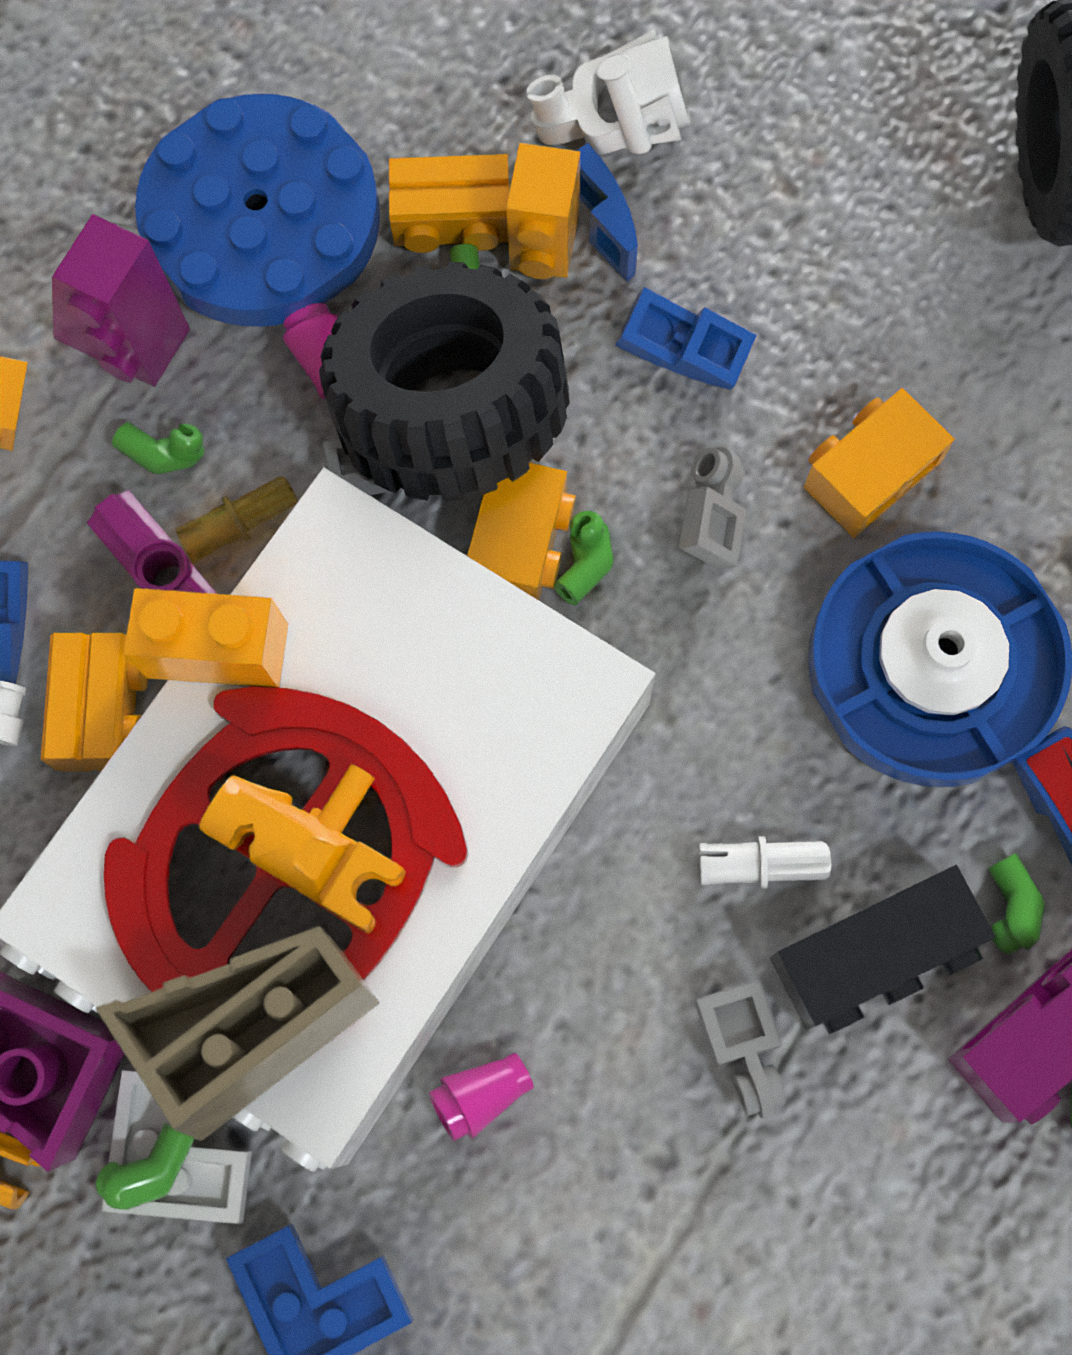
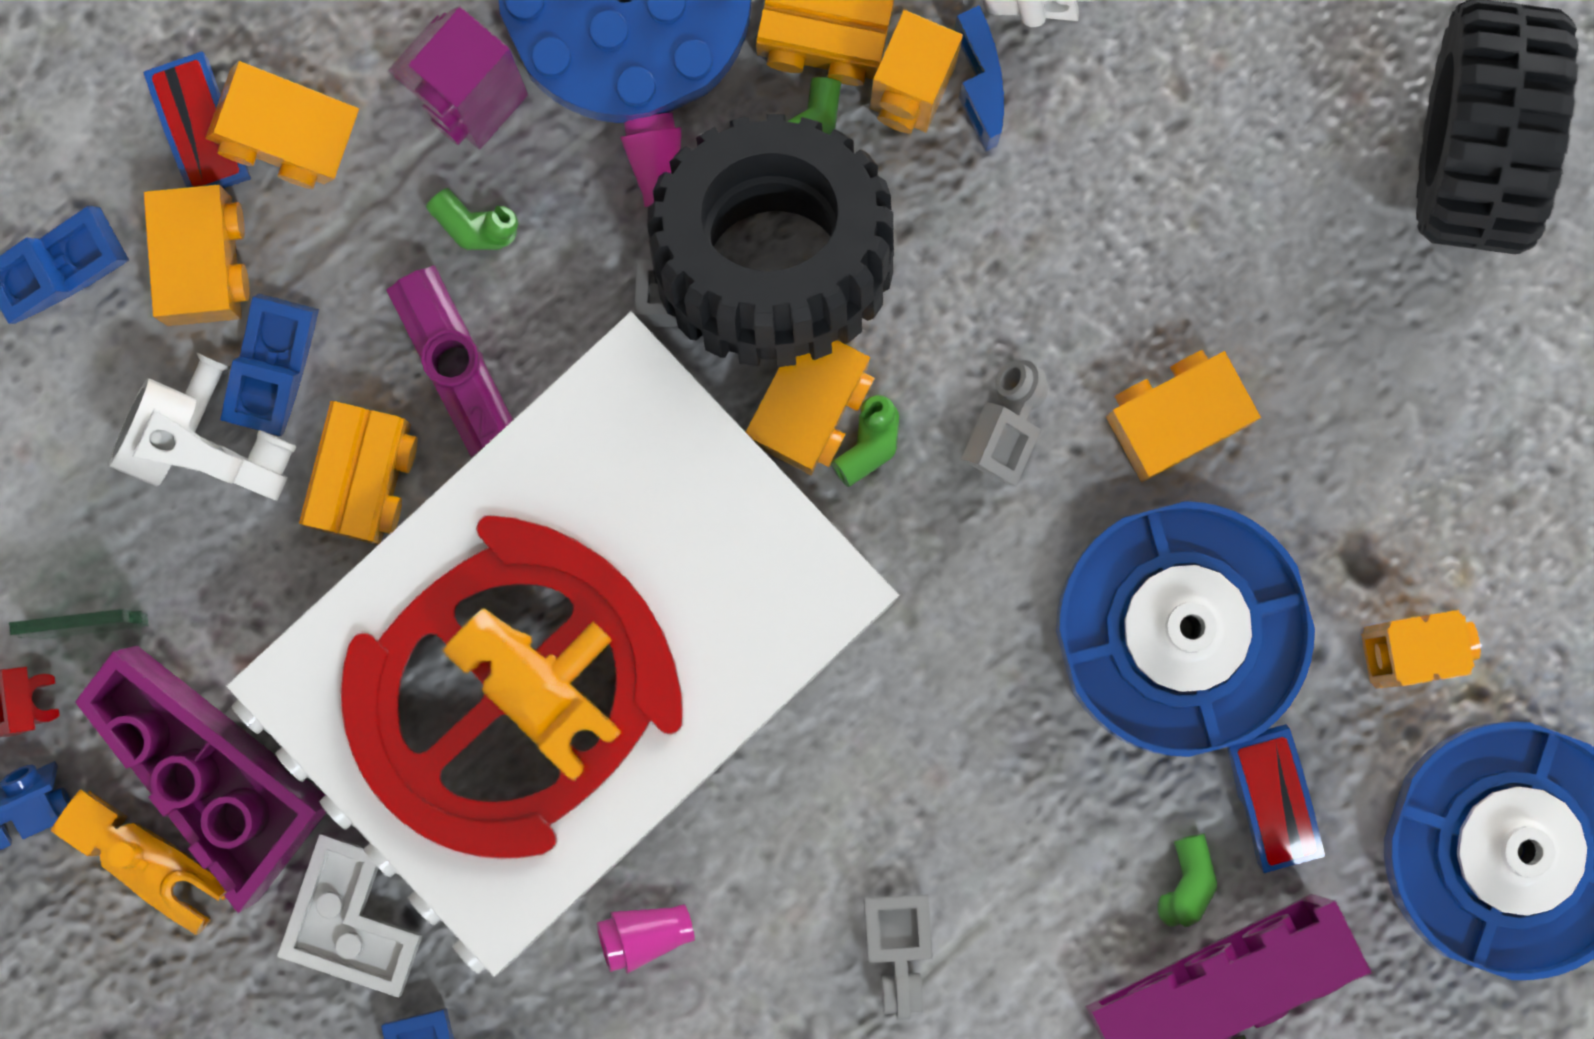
camera: 10 degrees right, 10 degrees up
(145, 1179) = (325, 940): bright green arm -> none
(206, 637) = (484, 466): light orange brick -> none
(235, 518) = (534, 316): clear yellow axle -> none
(239, 1029) = (441, 840): dark tan wedge -> none
(689, 344) = (1028, 235): blue slope -> none
(763, 862) = (963, 784): white axle -> none
(883, 951) = (1051, 896): black brick -> none

